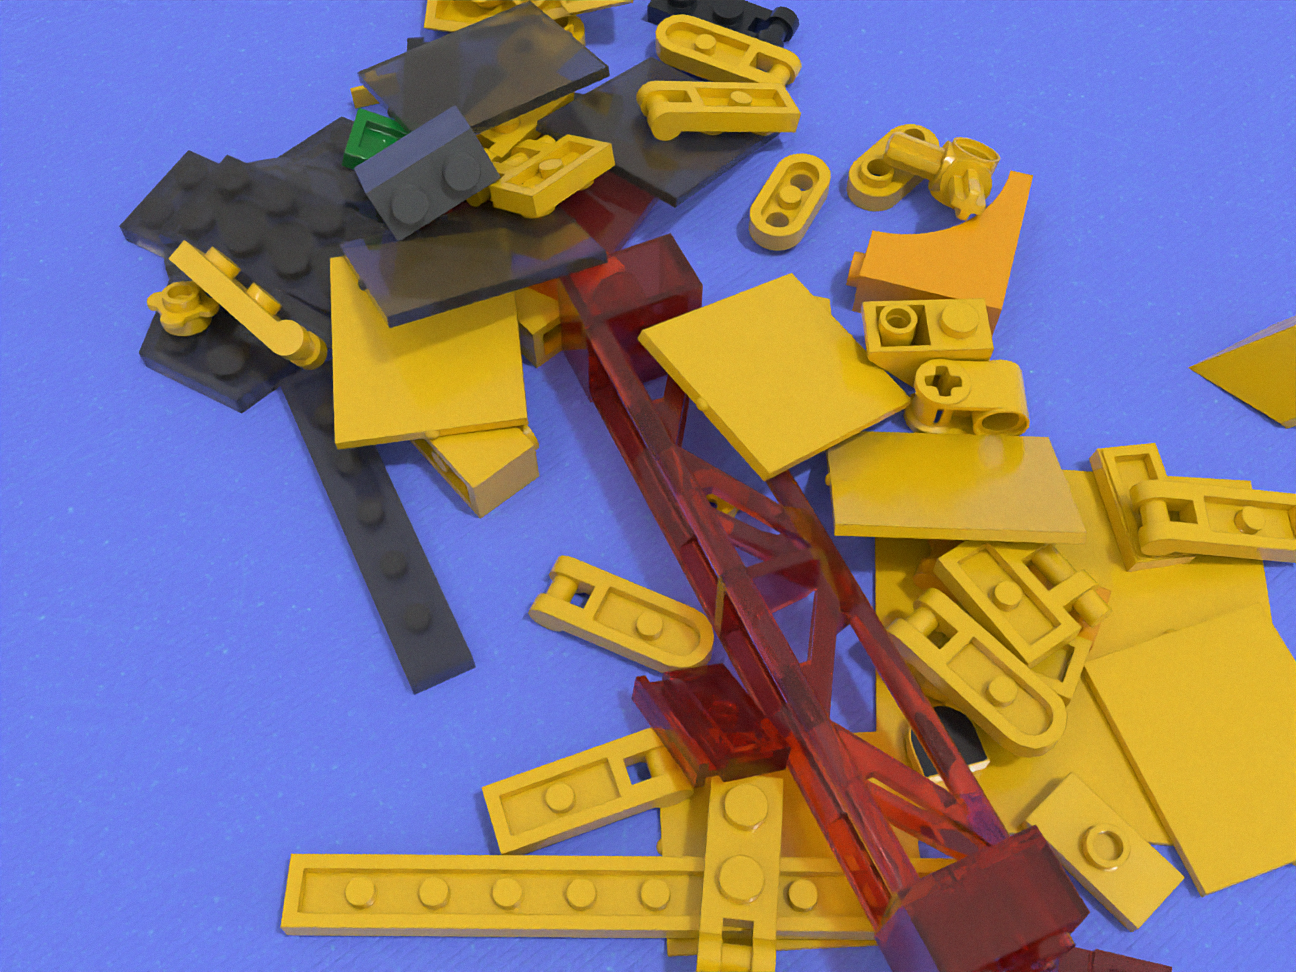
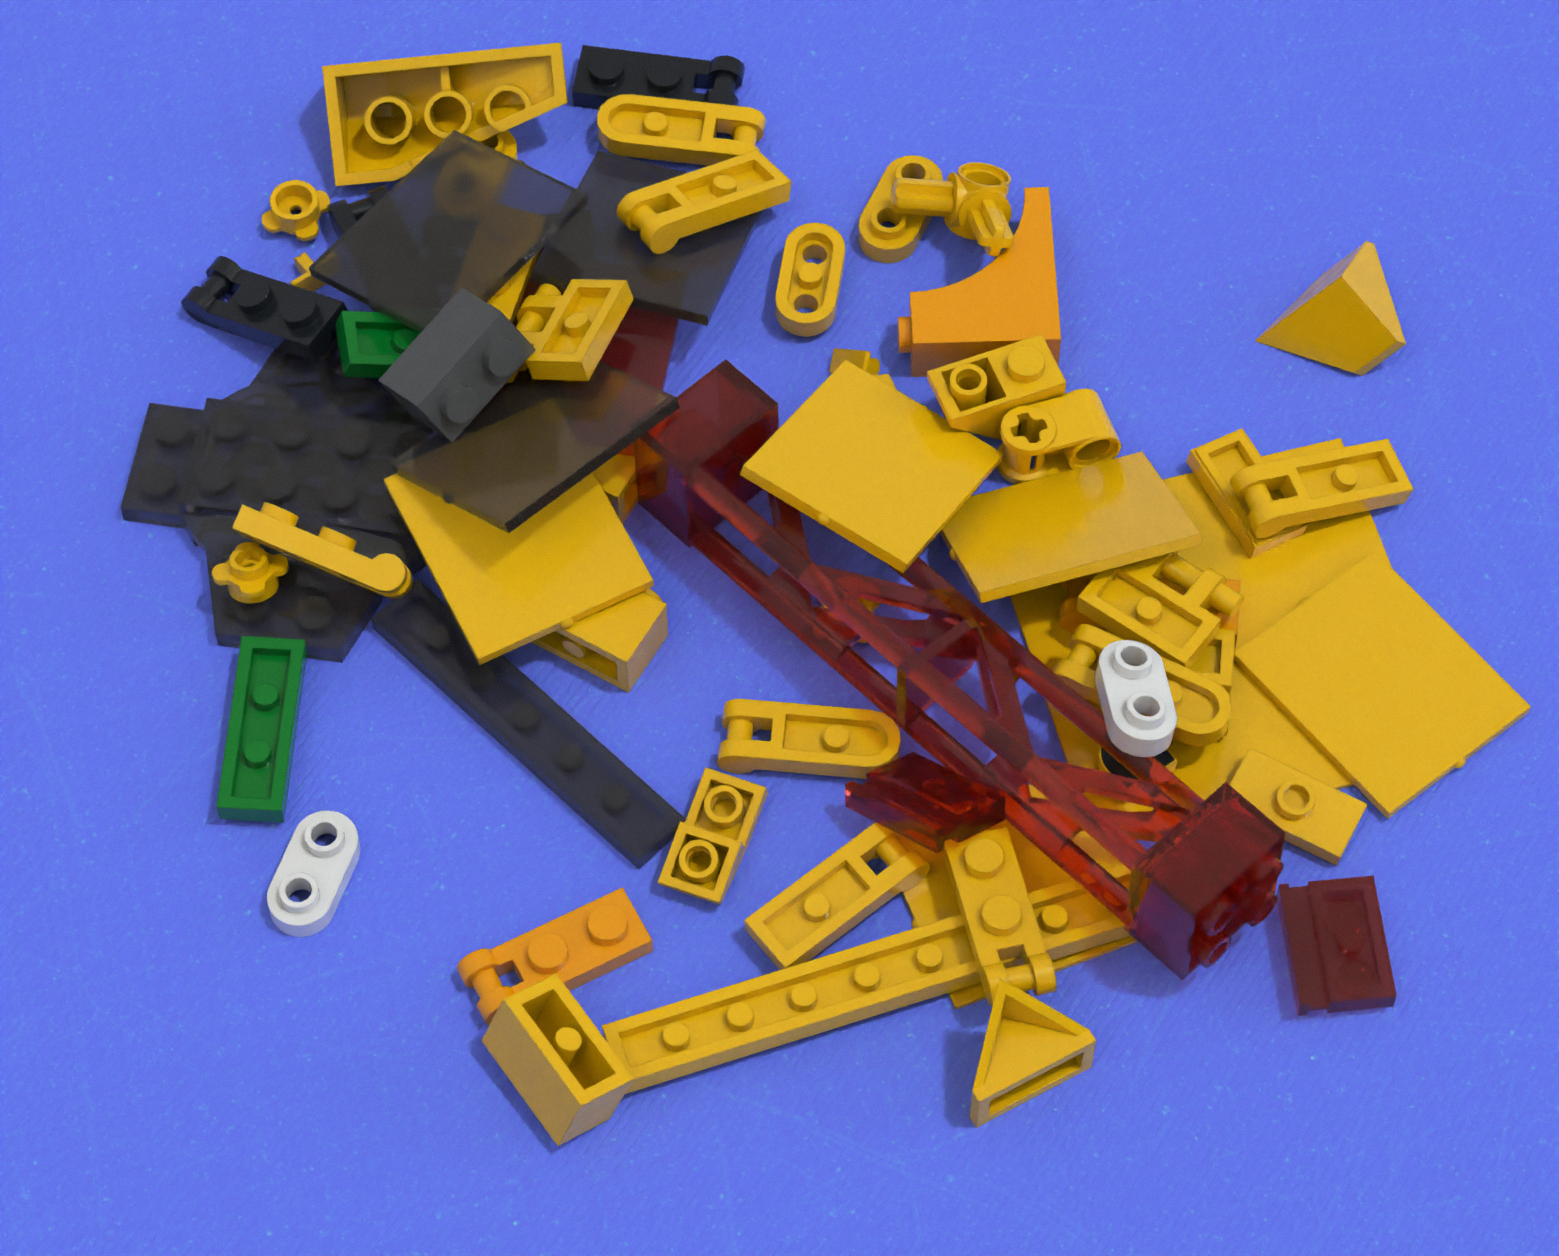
camera: 20 degrees left, 0 degrees up
(114, 600) = (313, 868): none -> white plate
(131, 452) = (262, 729): none -> green plate
(224, 878) = (557, 1059): none -> yellow brick
(290, 761) = (573, 946): none -> light orange plate
(312, 101) = (264, 310): none -> black plate
(382, 35) = (295, 196): none -> yellow plate
(494, 690) = (713, 836): none -> yellow slope
(808, 279) = (857, 357): none -> yellow piece
(963, 679) = (1131, 684): none -> white plate

